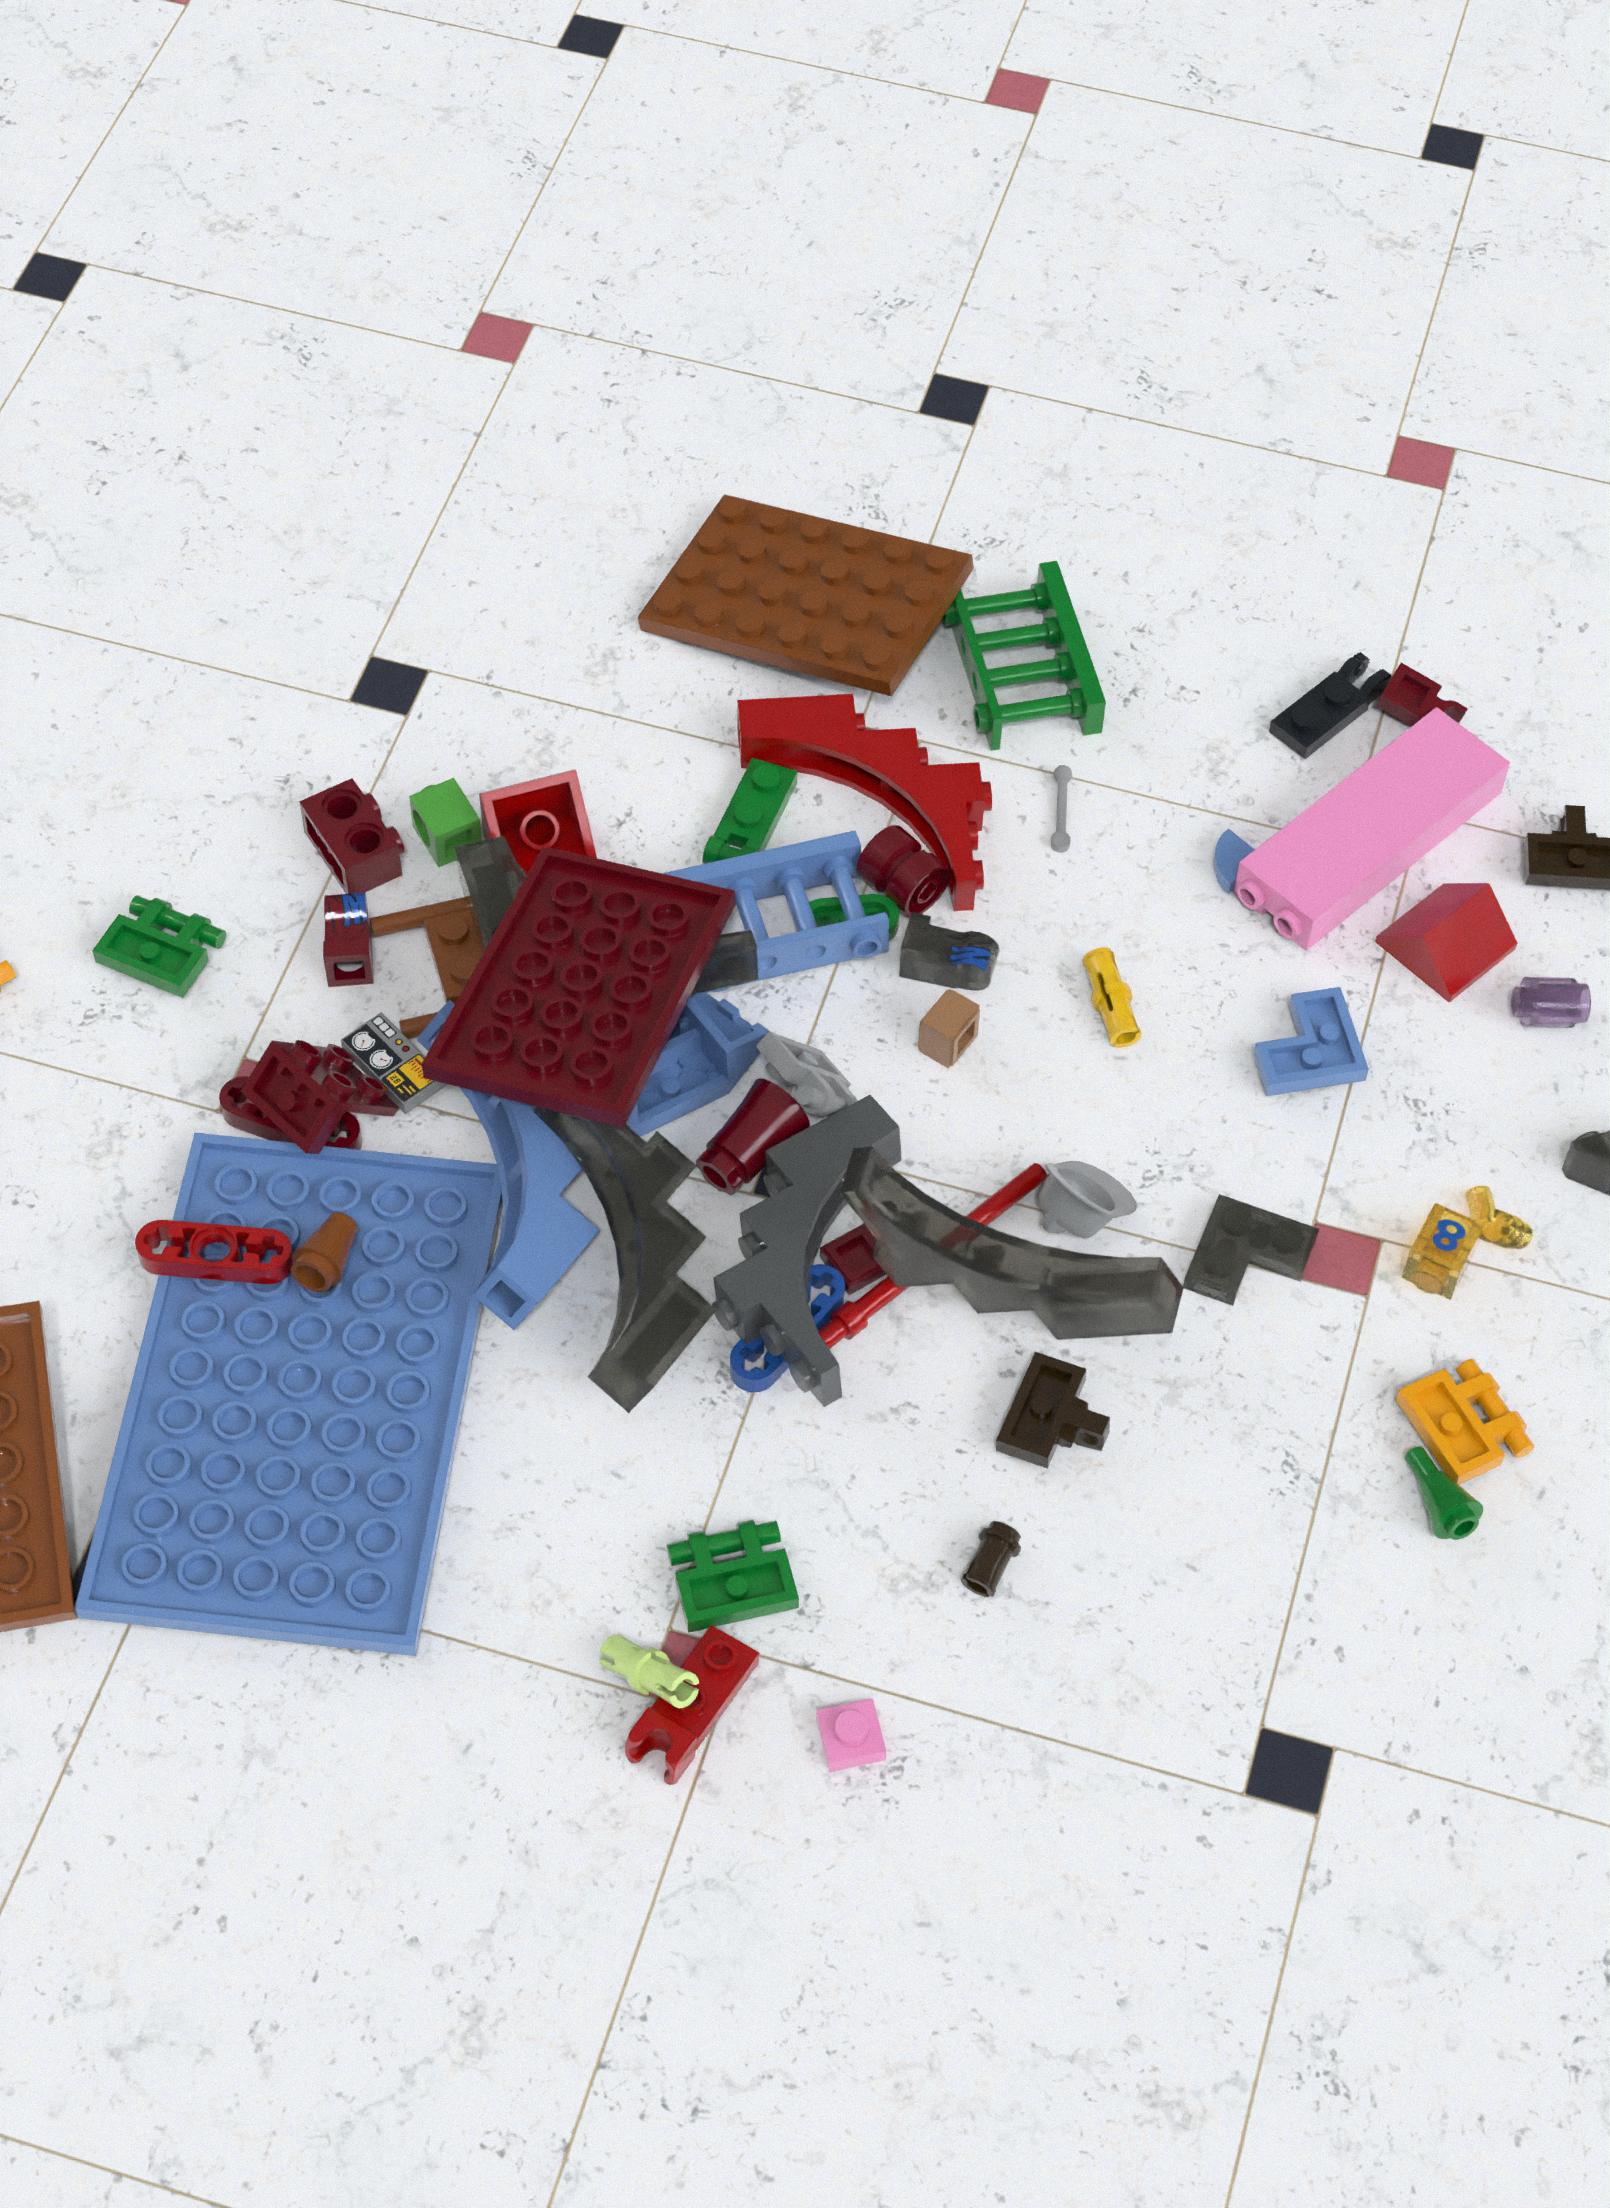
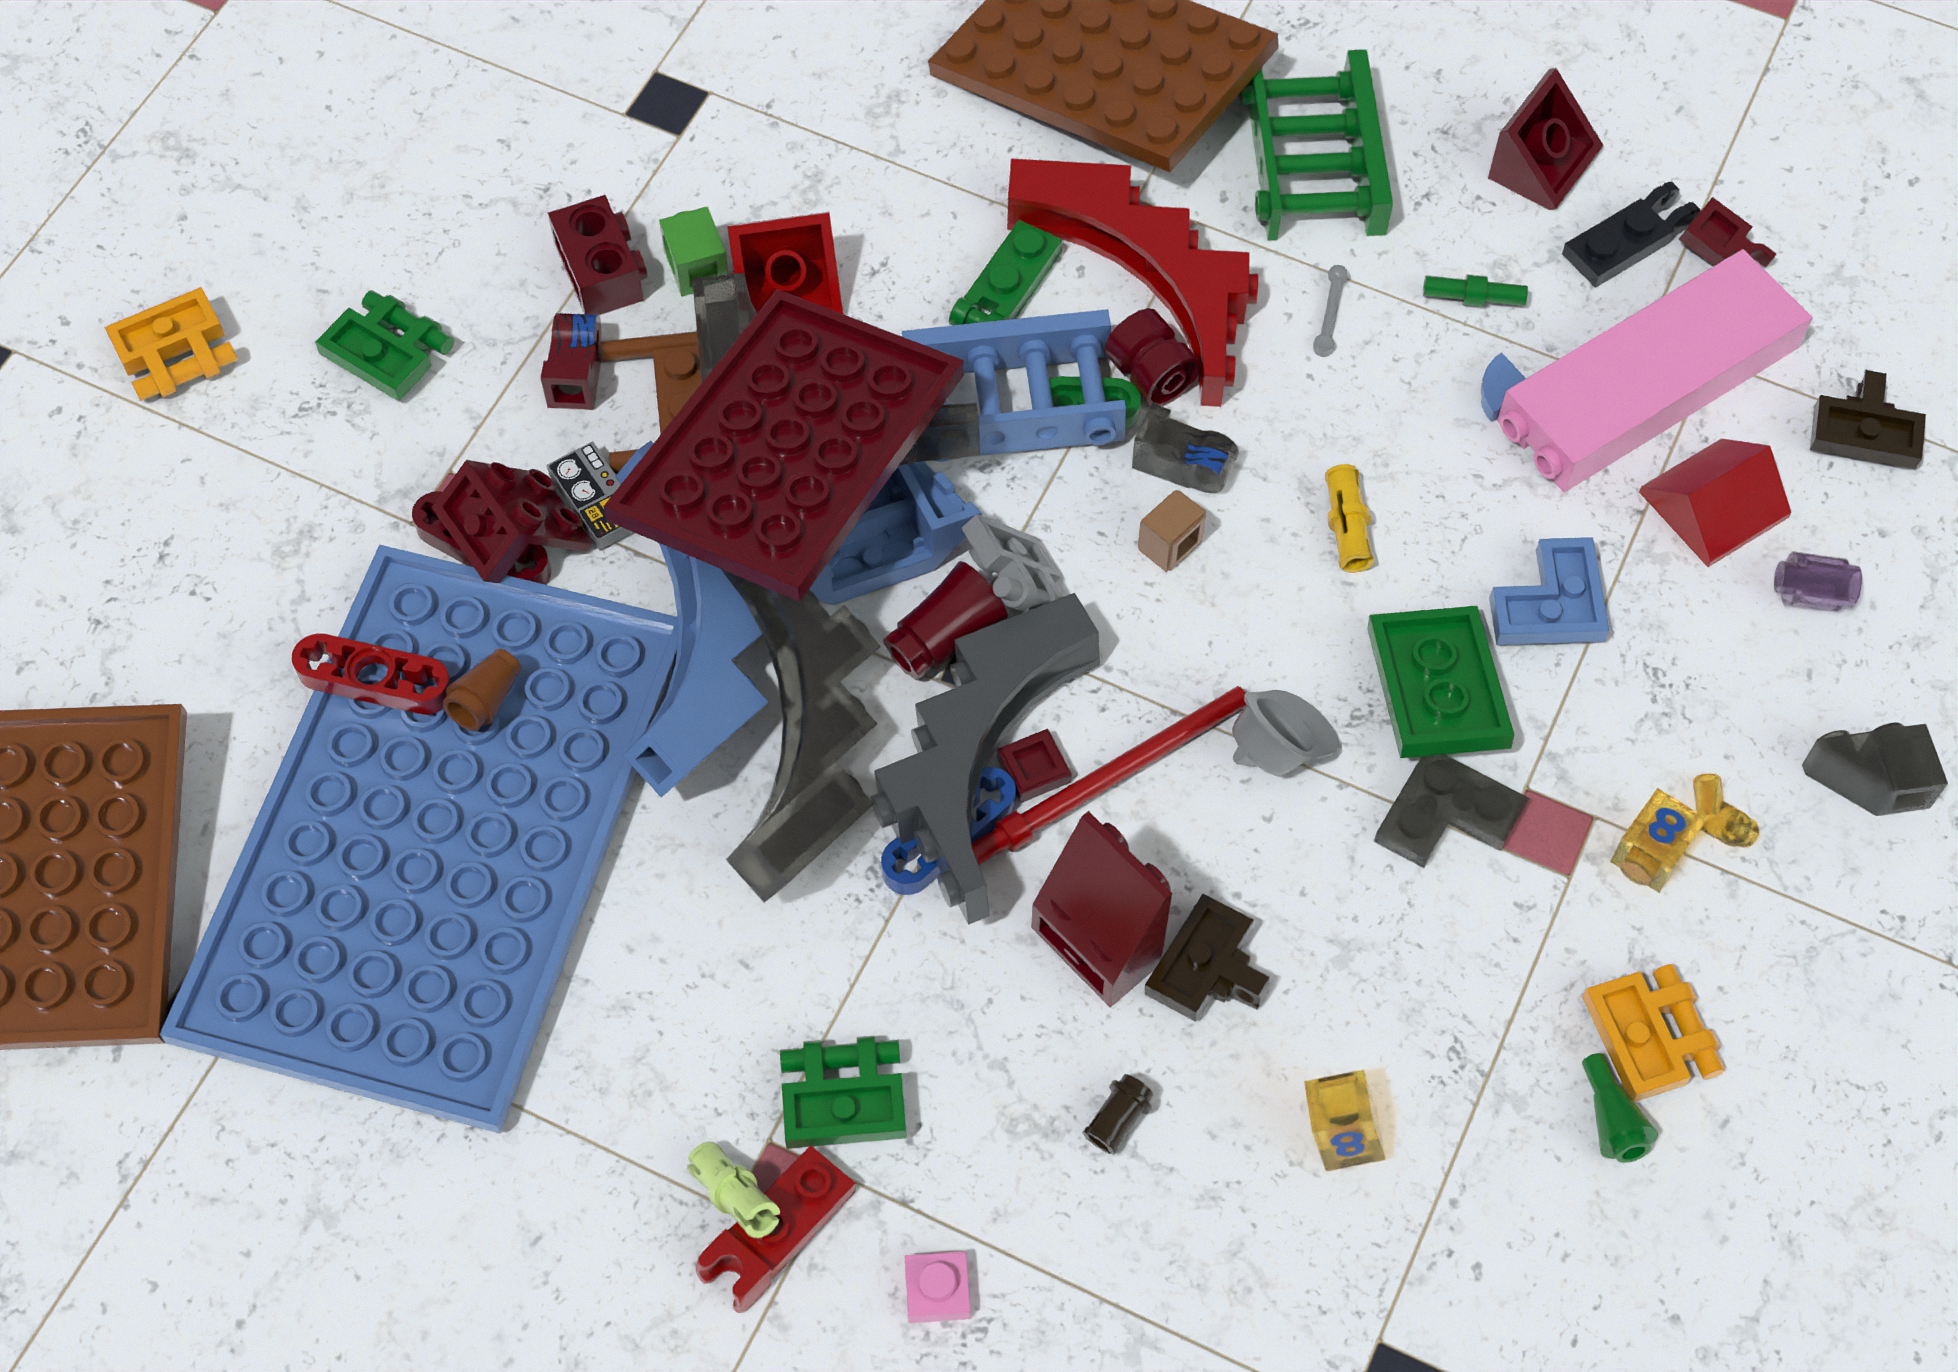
camera: 10 degrees right, 5 degrees up
(949, 1375) = (1103, 910): none -> dark red slope
(997, 1272) = (1173, 803): clear smoke arch -> none
(1194, 774) = (1475, 290): none -> green bar
(1200, 1533) = (1344, 1120): none -> clear yellow brick
(1221, 1134) = (1439, 682): none -> green plate
(1238, 631) = (1545, 144): none -> dark red slope

